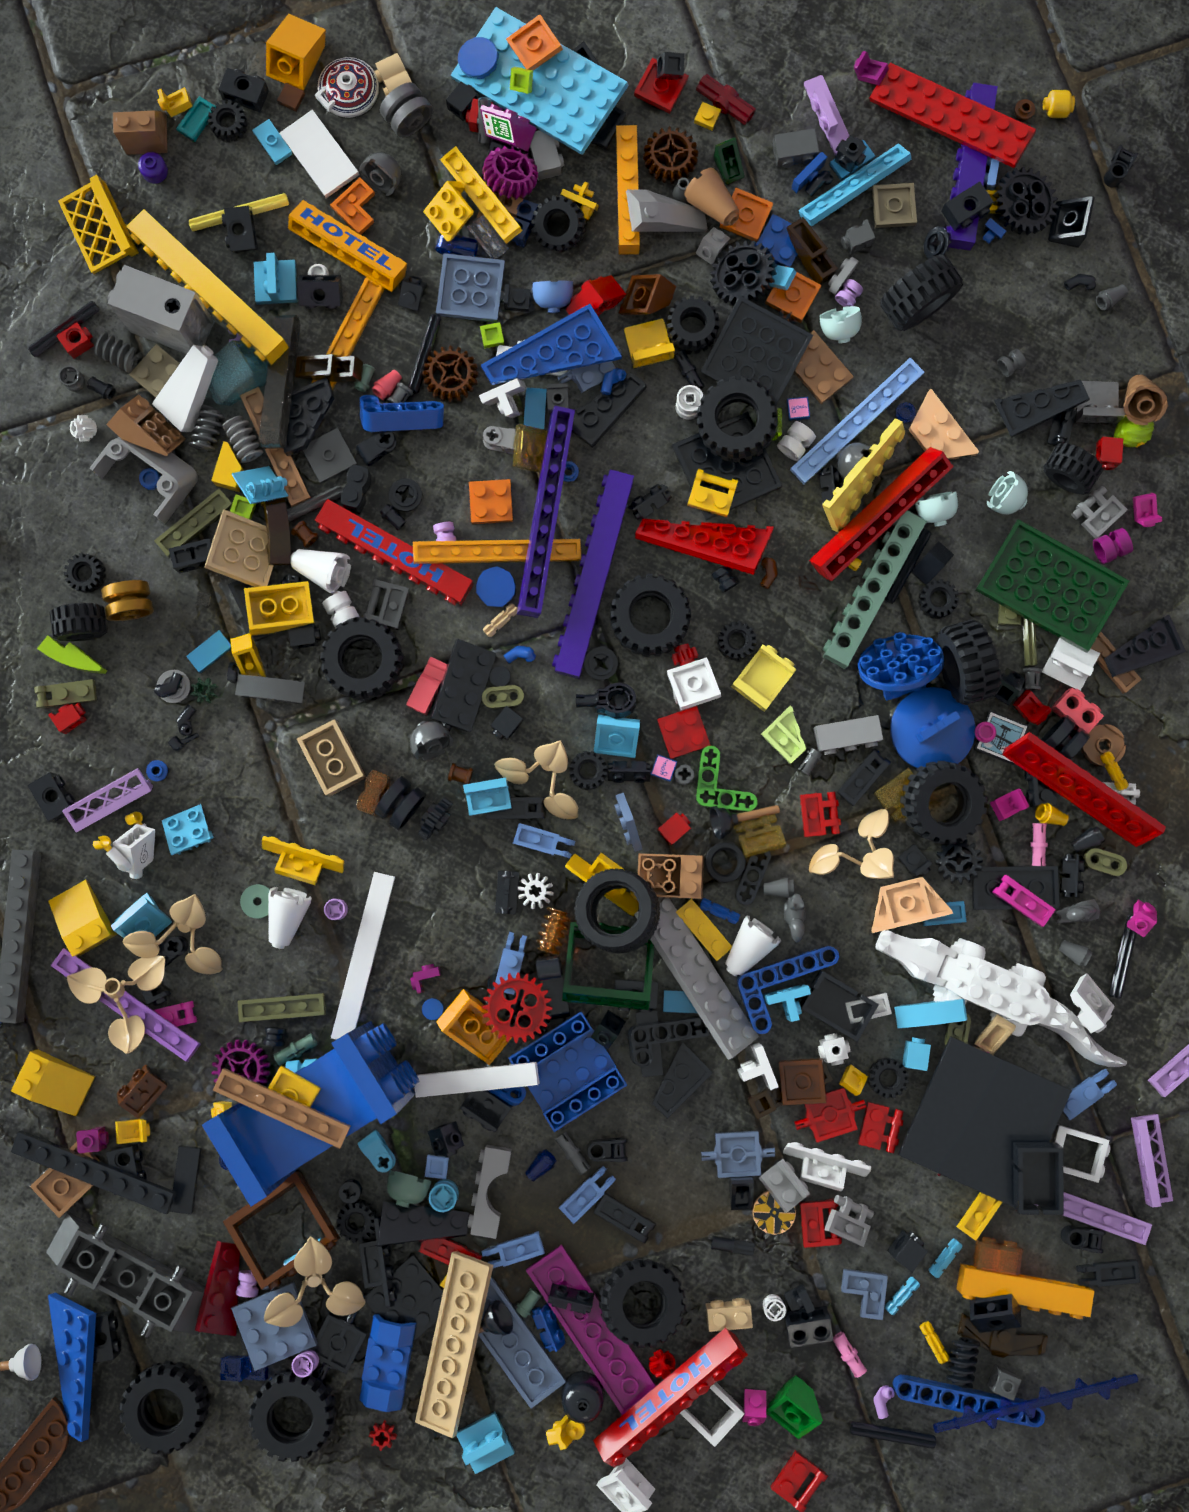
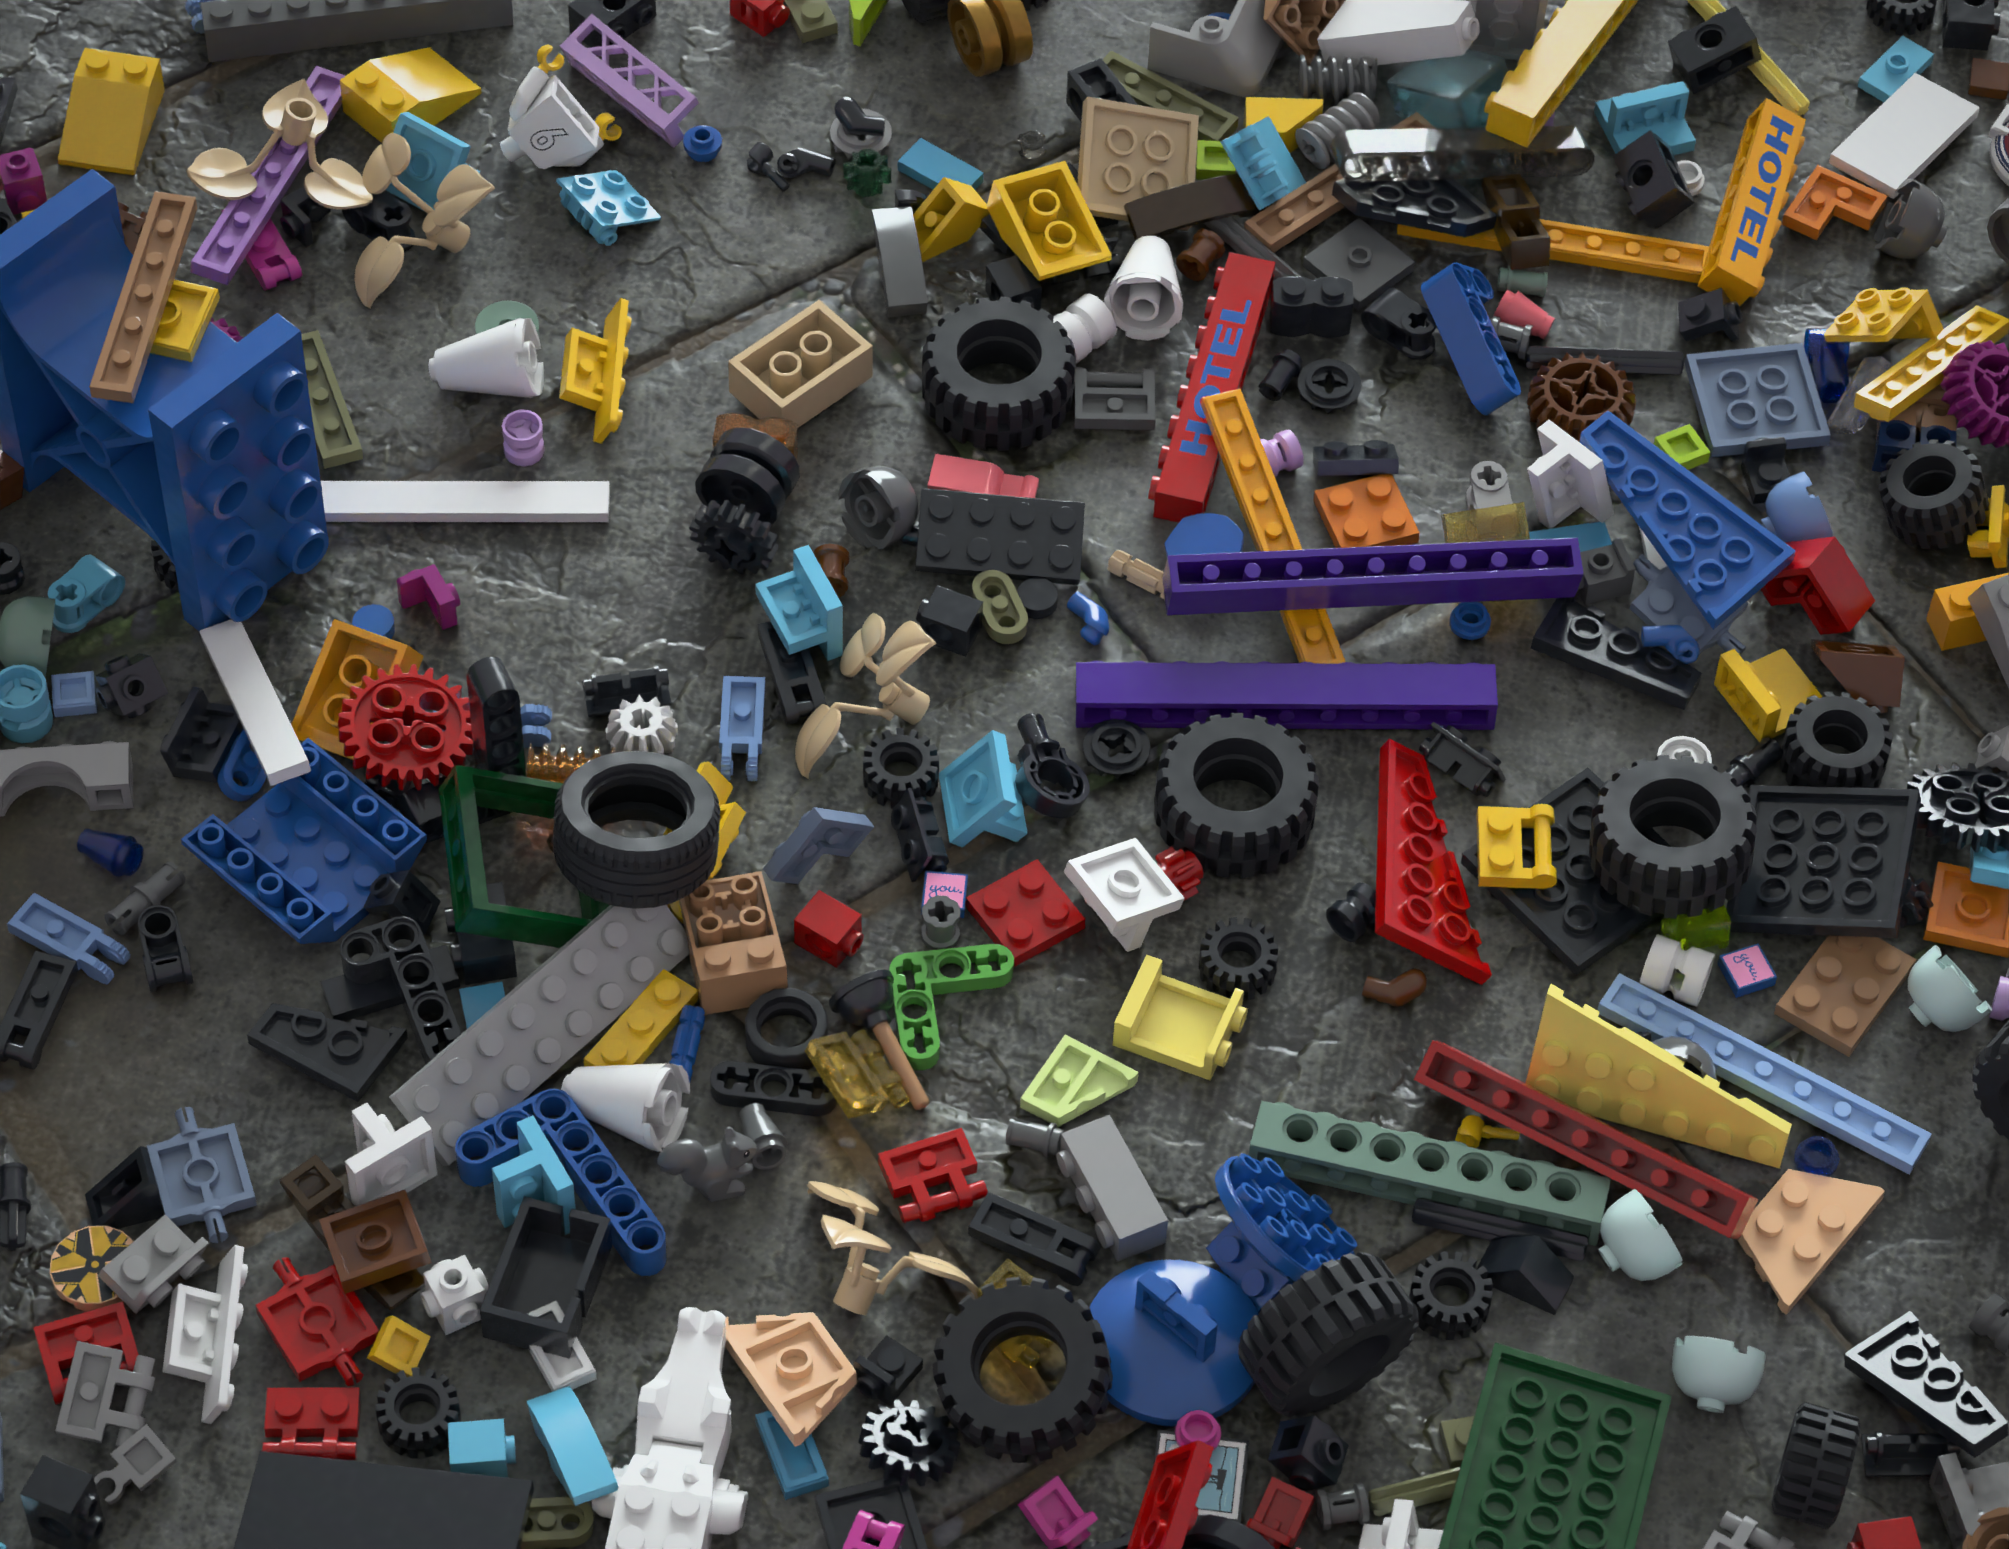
camera: 75 degrees right, 30 degrees down
(457, 496) = (1343, 459): none -> black plate
(883, 1211) = (139, 1461): none -> light grey plate

